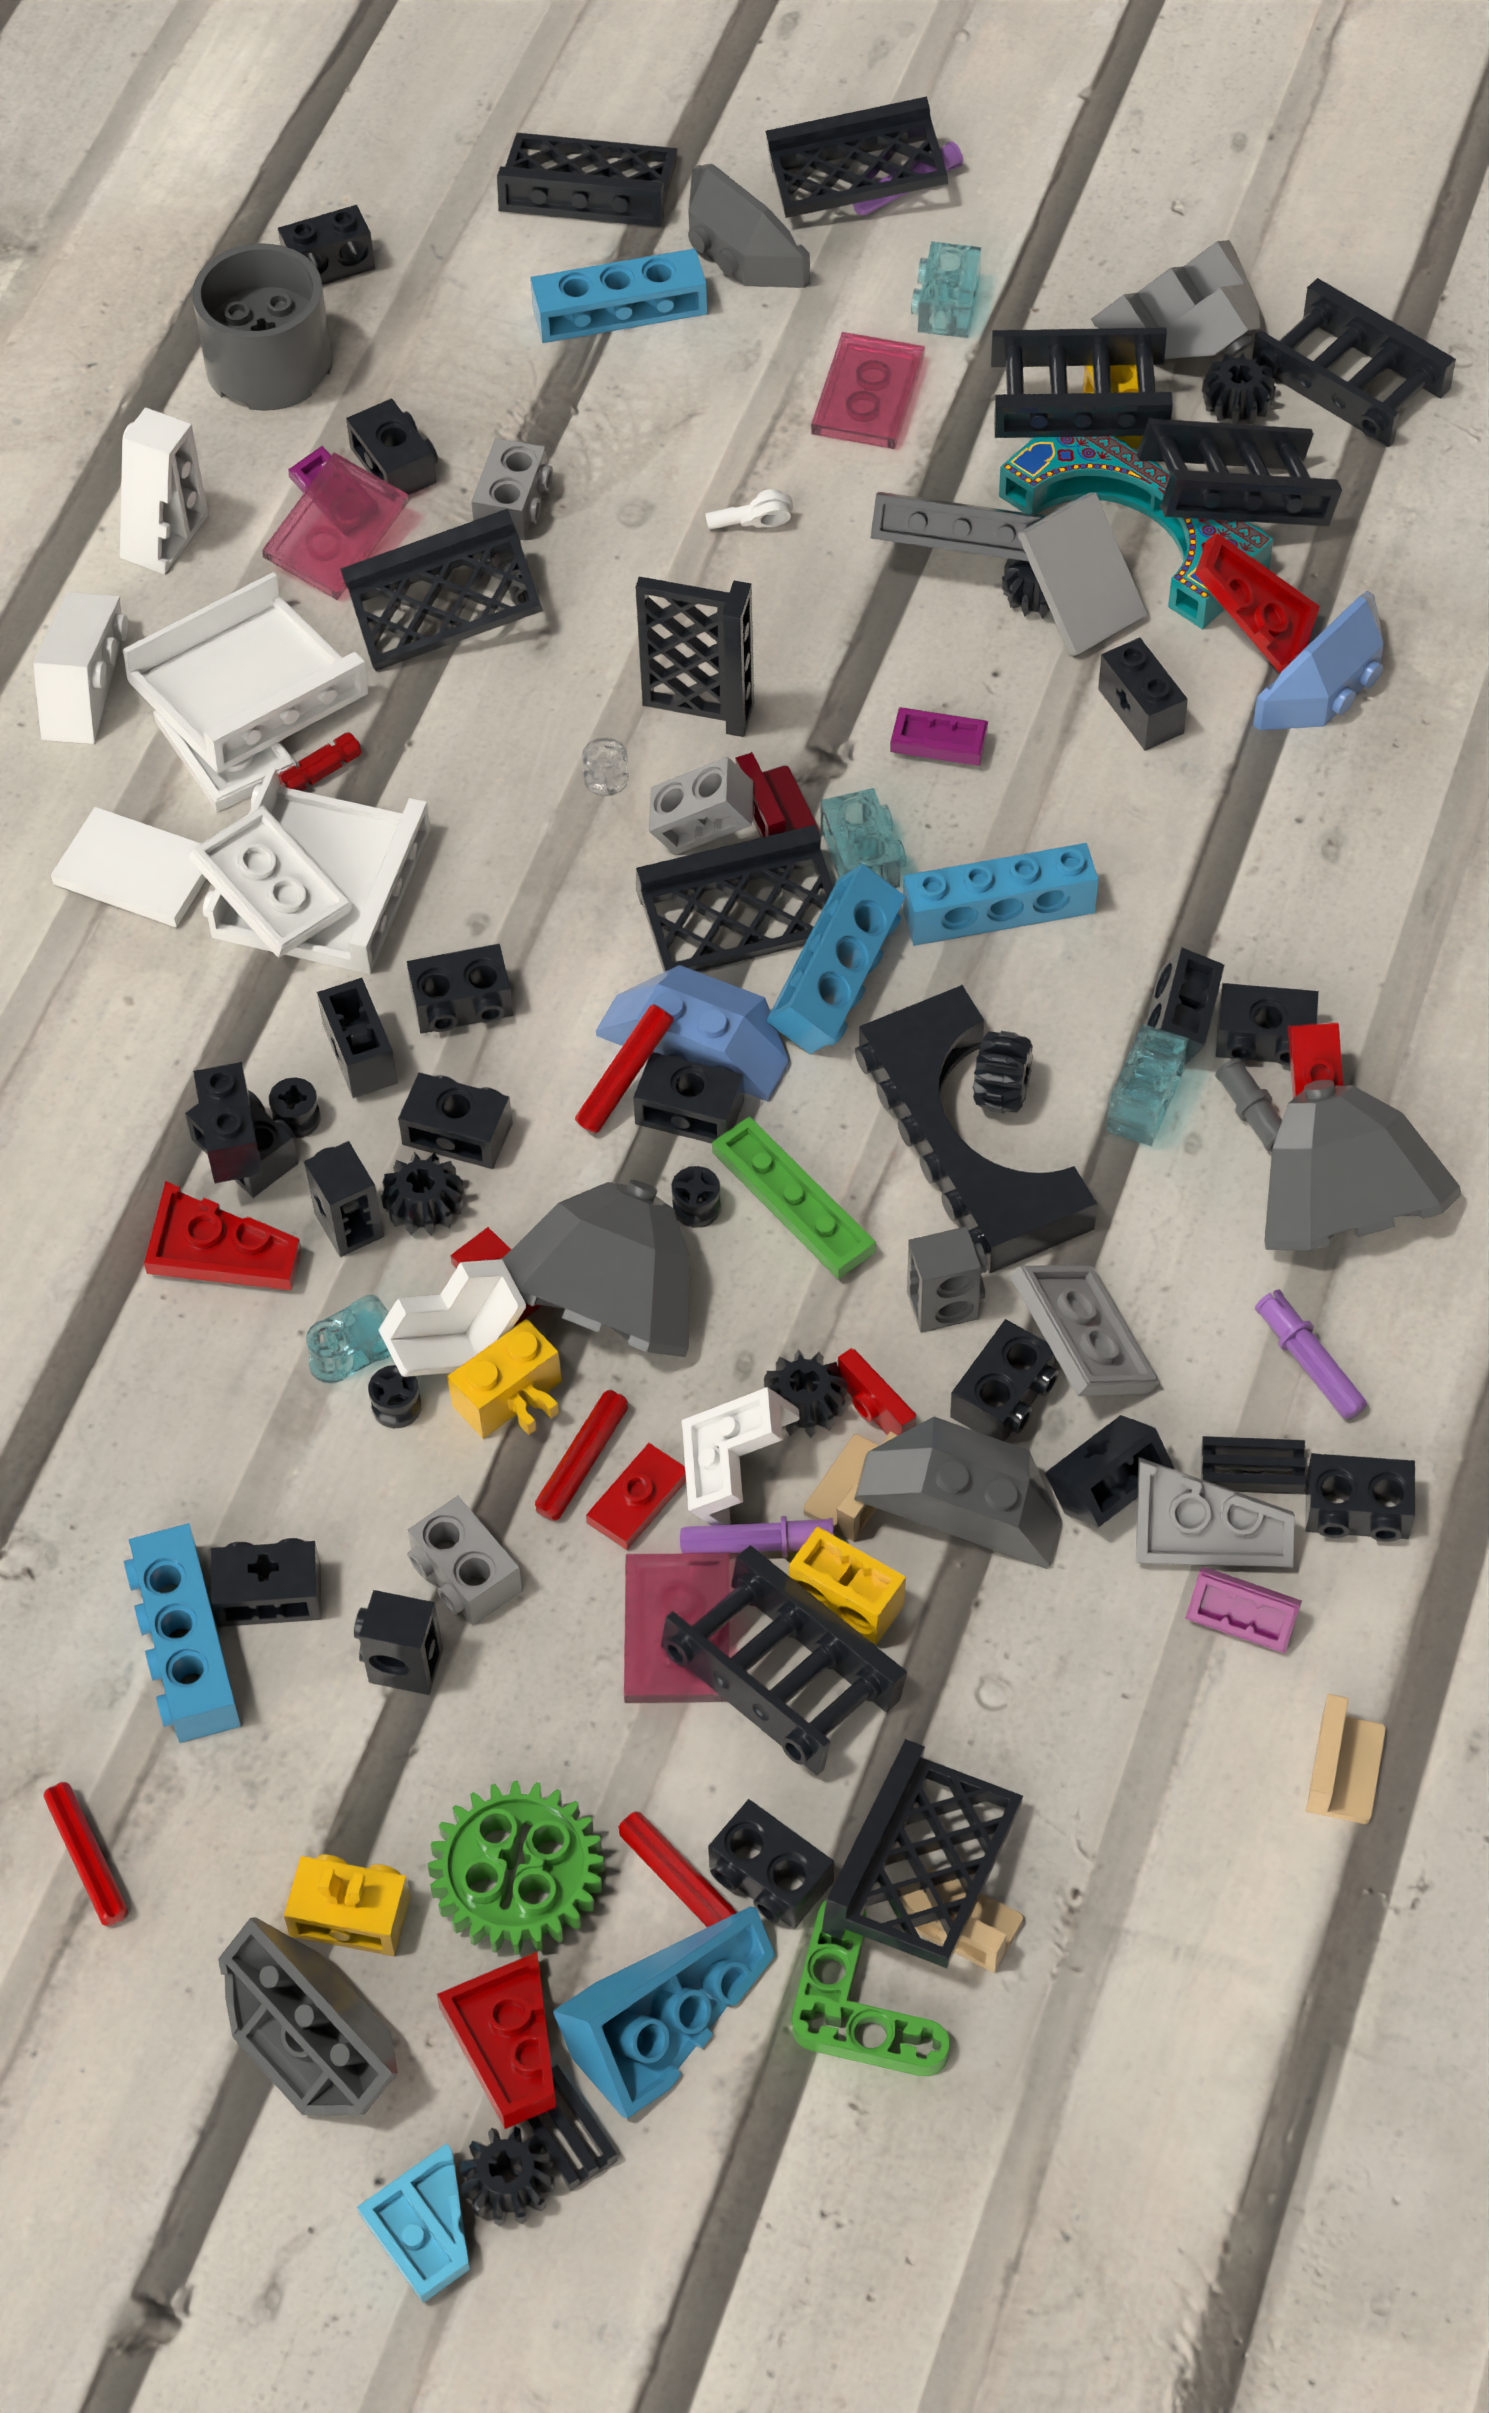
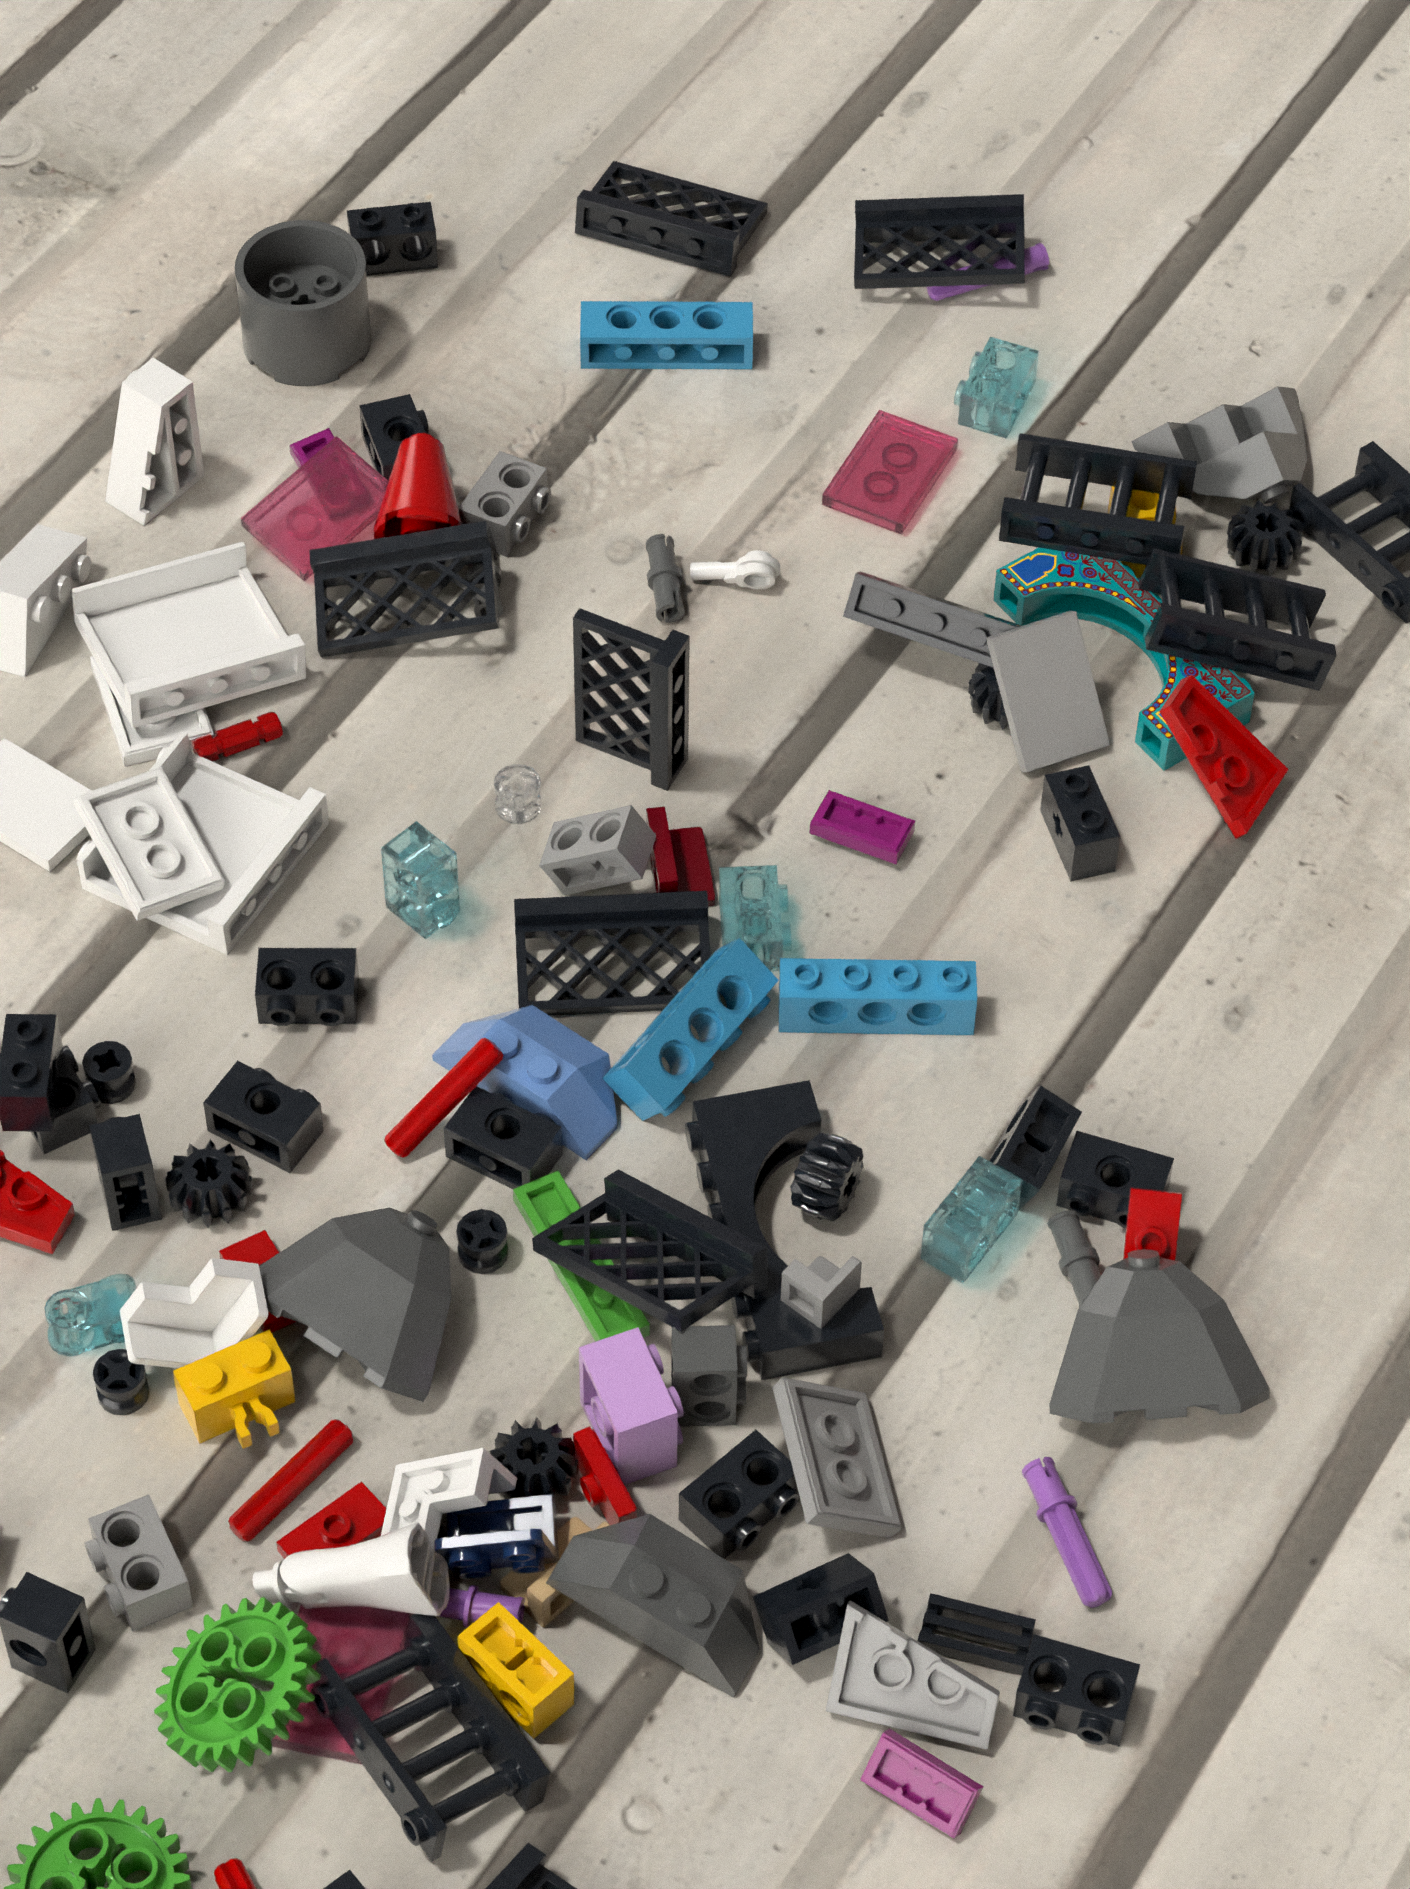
camera: 10 degrees right, 5 degrees down
(357, 1037) = (188, 1014): black brick -> none
(430, 491) = (418, 490): none -> red cone
(542, 866) = (421, 880): none -> clear light blue brick
(576, 1687) = (230, 1720): none -> bright green gear
(685, 532) = (665, 578): none -> dark grey pin
(707, 1521) = (381, 1573): none -> white piece
(743, 233) = (805, 297): dark grey wedge -> none
(799, 1464) = (501, 1535): none -> dark blue bracket
(874, 1151) = (671, 1231): none -> black fence
(883, 1318) = (630, 1404): none -> lavender brick
(1029, 1176) = (820, 1288): none -> light grey panel
(1326, 672) = (1274, 834): medium blue wedge -> none

